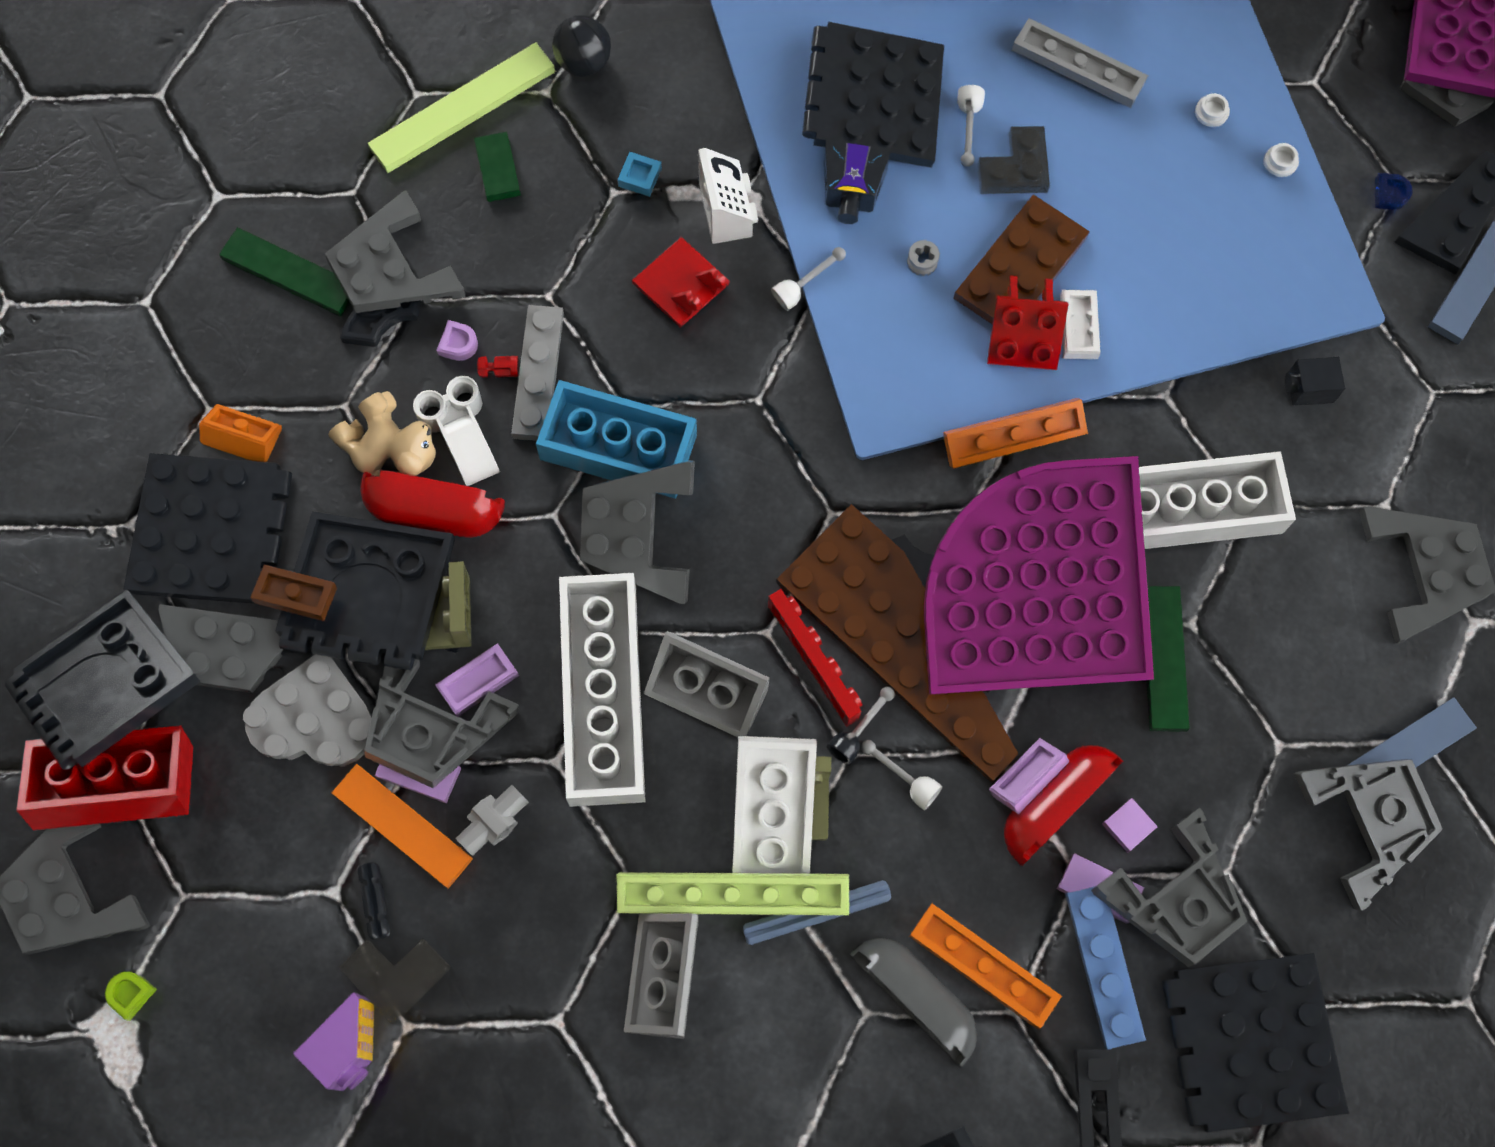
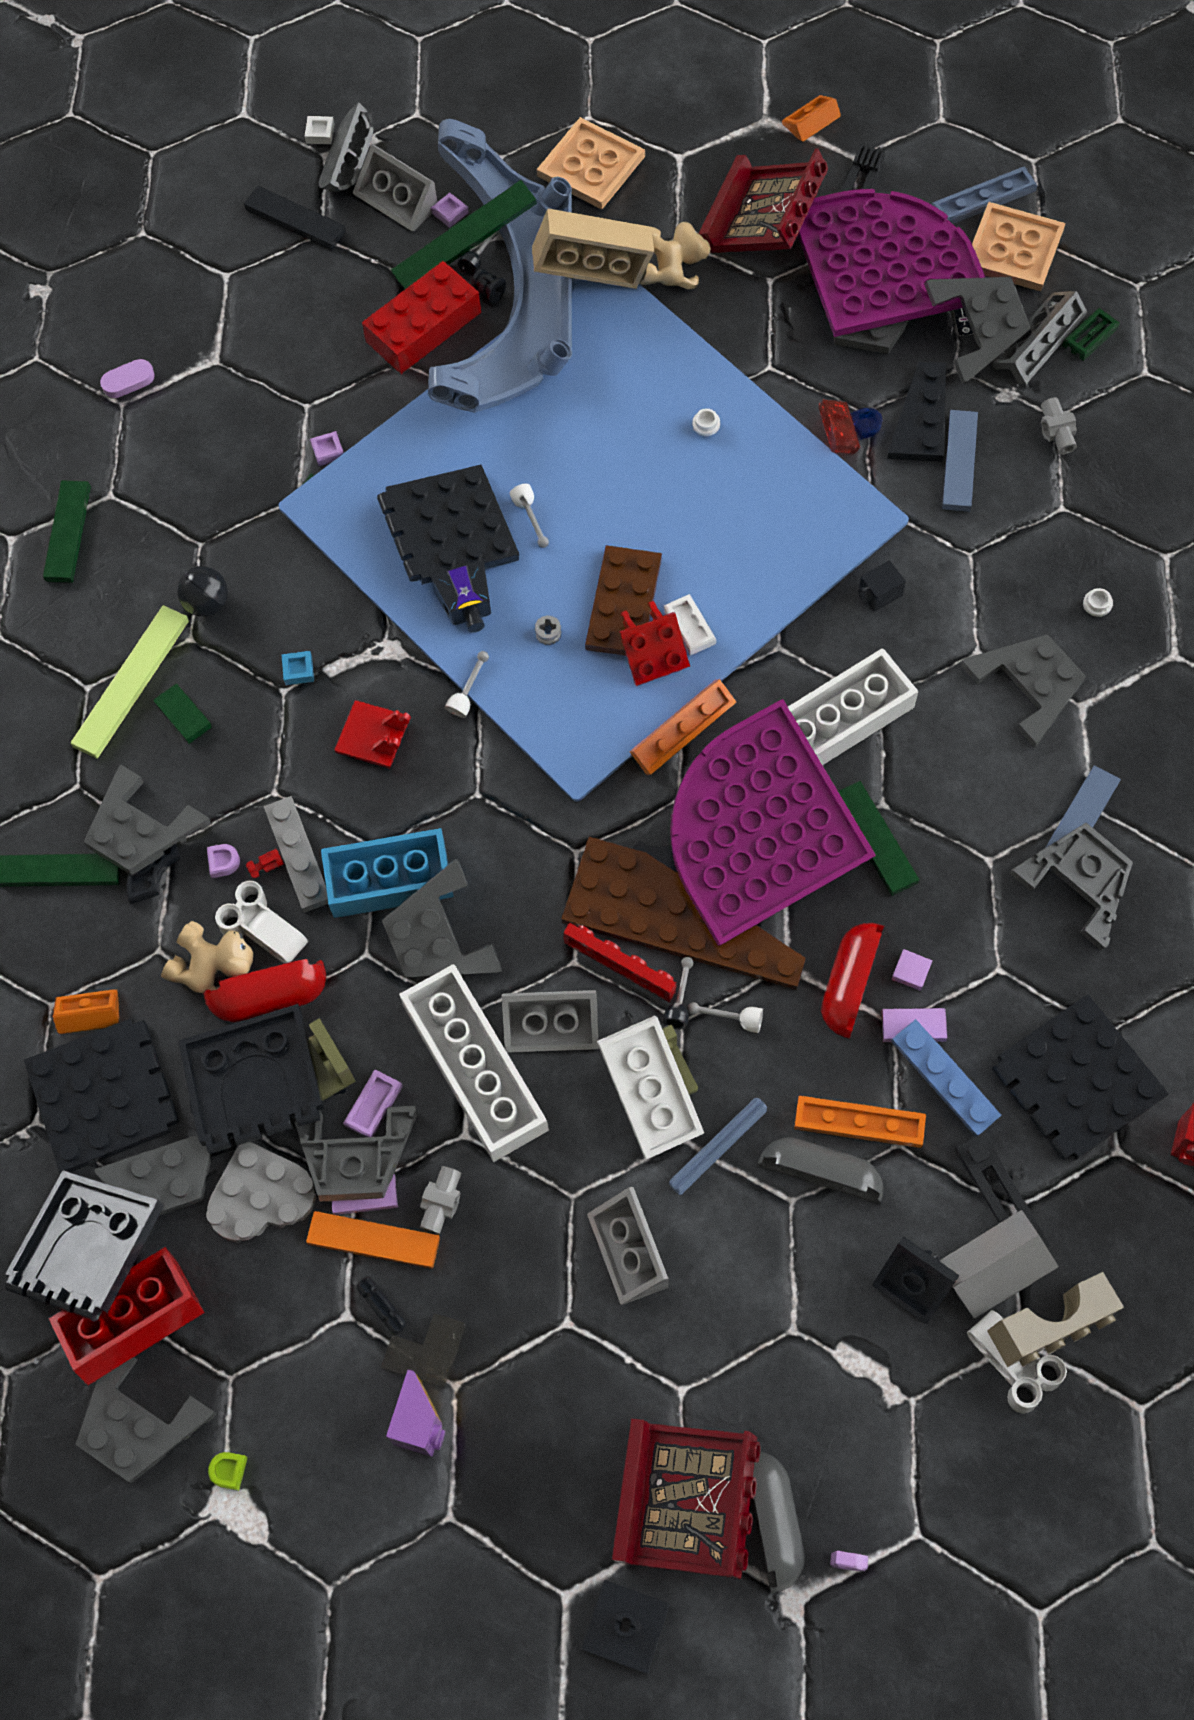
camera: 20 degrees left, 5 degrees down
(293, 592) = (199, 1105): reddish brown plate -> none
(725, 197) = (374, 655): white slope -> none
(733, 893) = (649, 1161): yellowish green tile -> none
(1022, 171) = (588, 531): clear smoke plate -> none
(1029, 775) = (821, 969): lavender tile -> none
(1079, 62) = (589, 432): light grey plate -> none
(1191, 910) = (986, 1007): dark grey wing -> none
(1281, 160) = (775, 436): white plate -> none
(1358, 182) = (839, 426): none -> clear red plate

